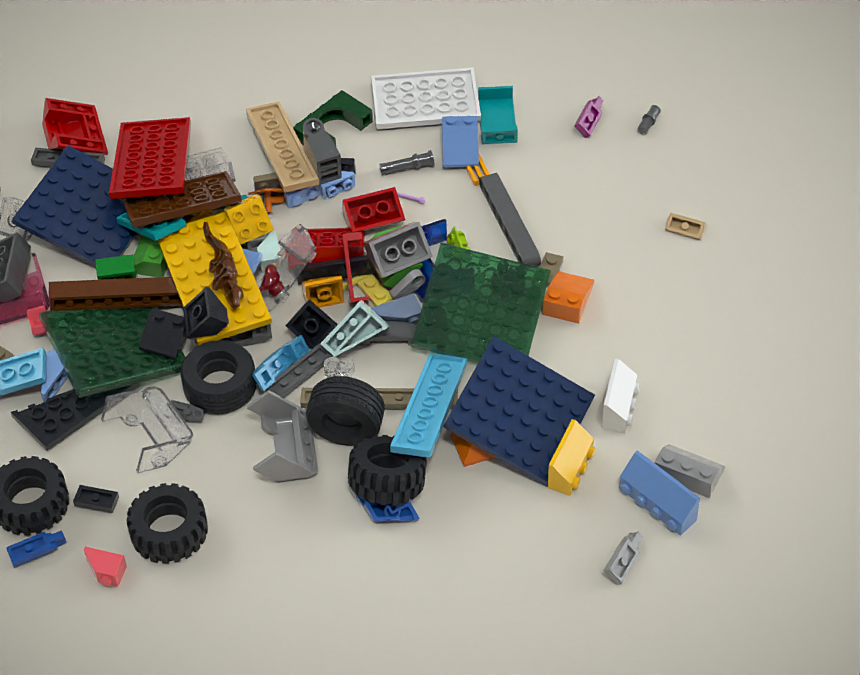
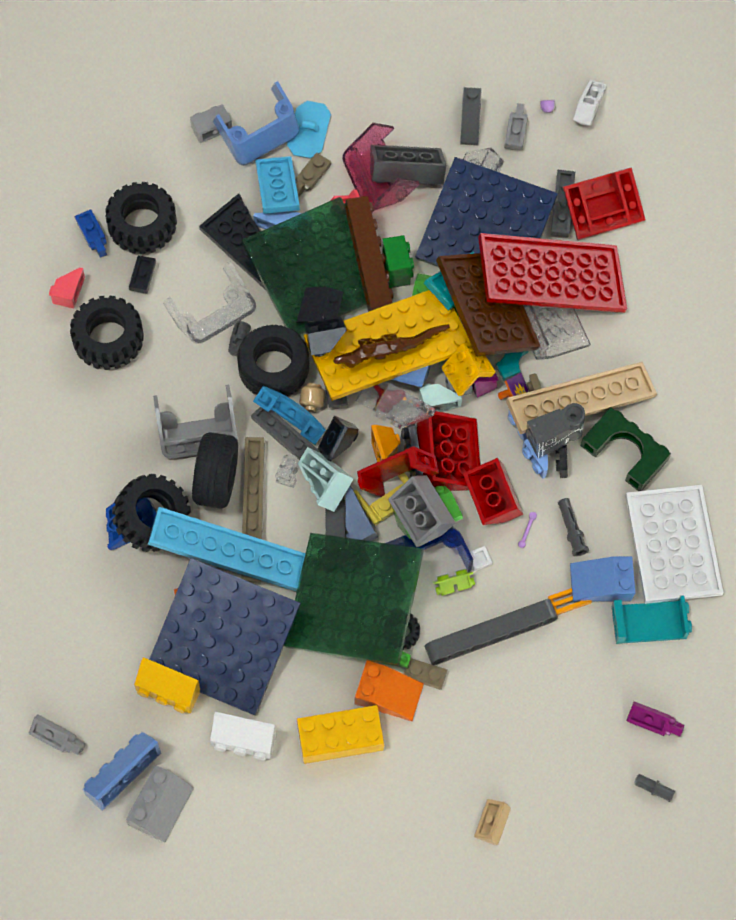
camera: 85 degrees right, 15 degrees up
(259, 348) = (312, 397): none -> tan head
(407, 284) = (390, 528): light grey piece -> none
(613, 326) = (340, 734): none -> yellow brick

